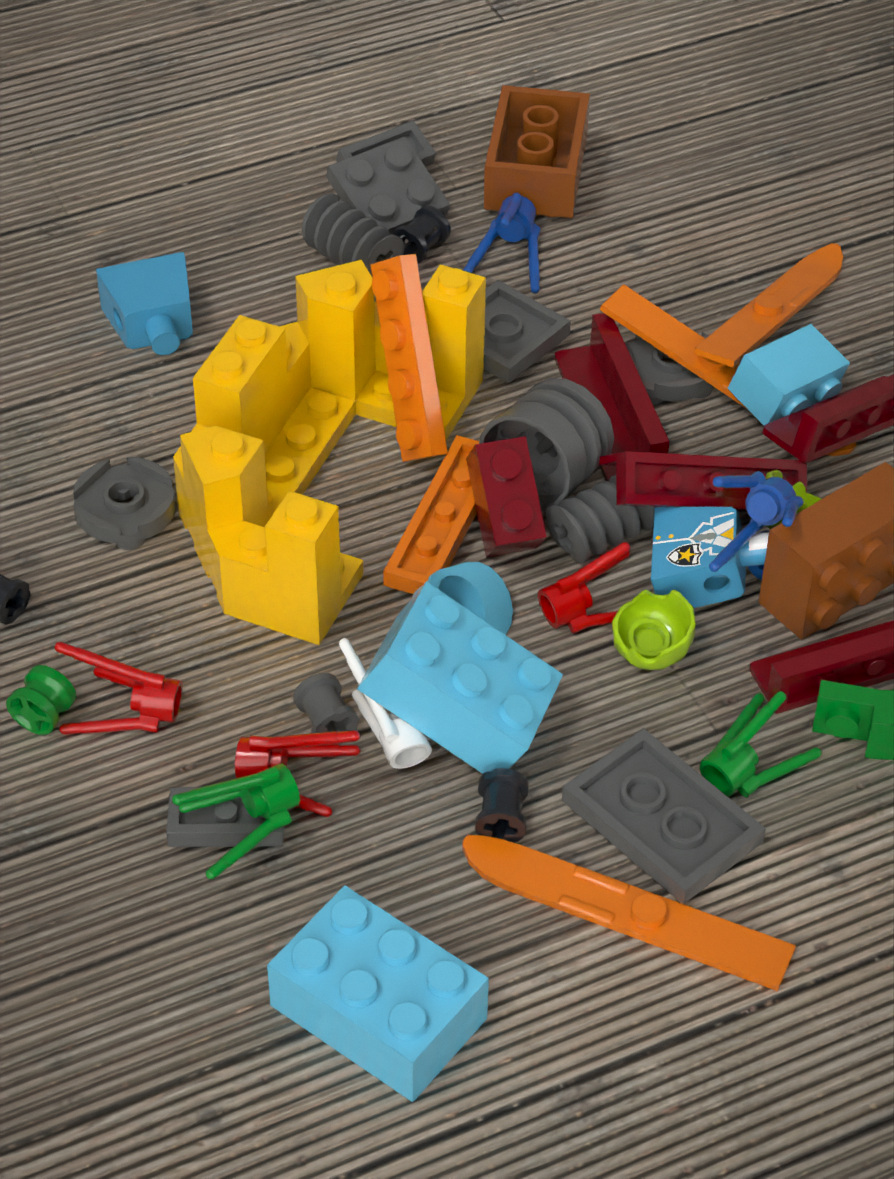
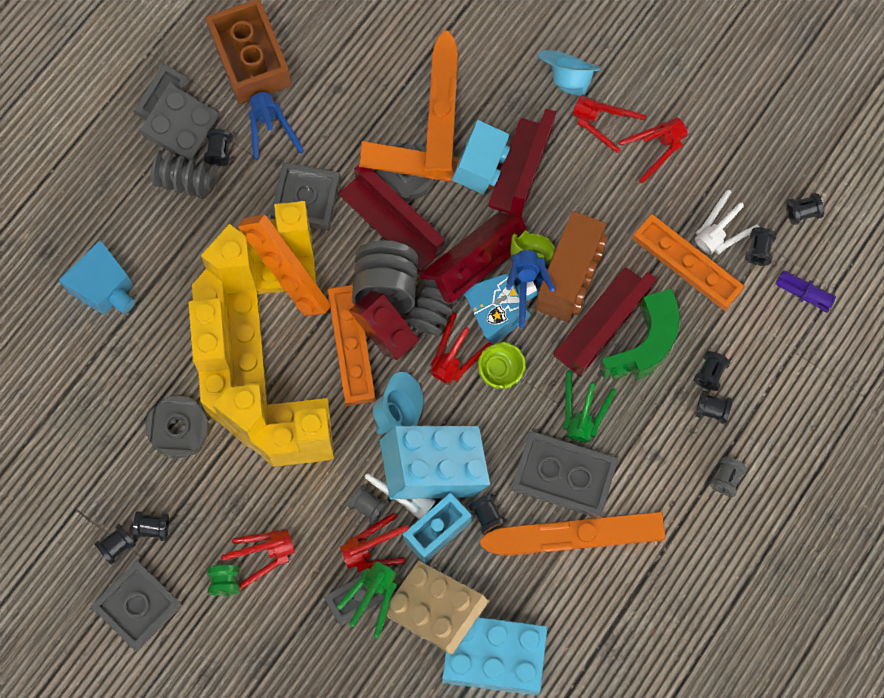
camera: 30 degrees left, 25 degrees up
(327, 867) = (435, 607): none -> tan plate
(407, 777) = (437, 528): none -> medium azure brick

